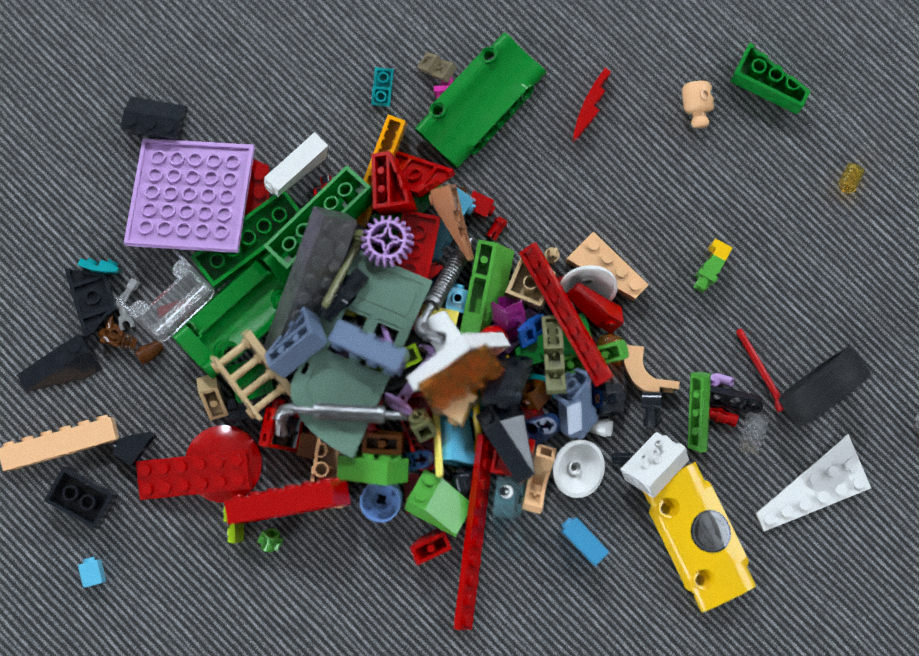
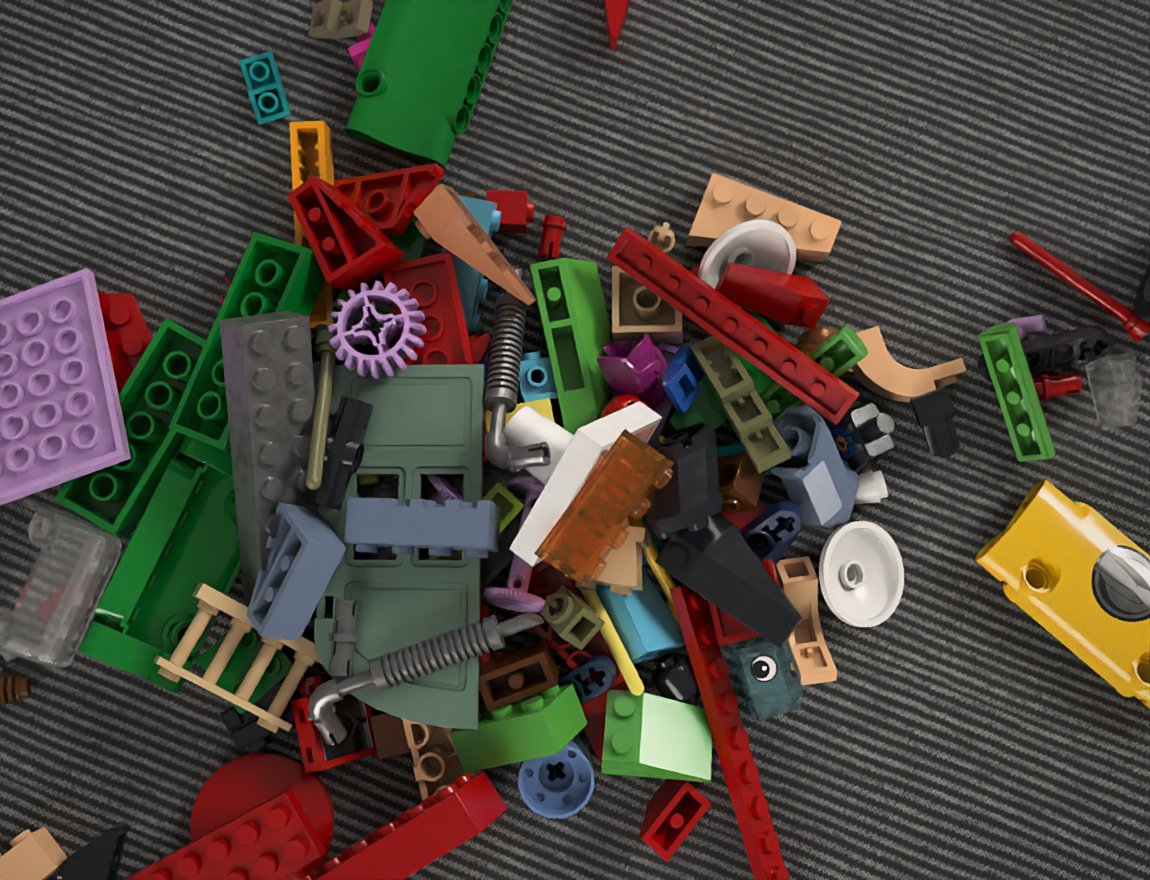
camera: 25 degrees left, 0 degrees up
(149, 351) = (55, 690): reddish brown cone -> none
(212, 397) = (193, 720): tan slope -> none
(296, 165) = (171, 269): white slope -> none
(307, 386) = (343, 637): none -> dark grey pin
(584, 540) = (926, 691): dark azure brick -> none
(652, 464) = (982, 513): white piece -> none
(707, 273) = (931, 143): bright green hips -> none

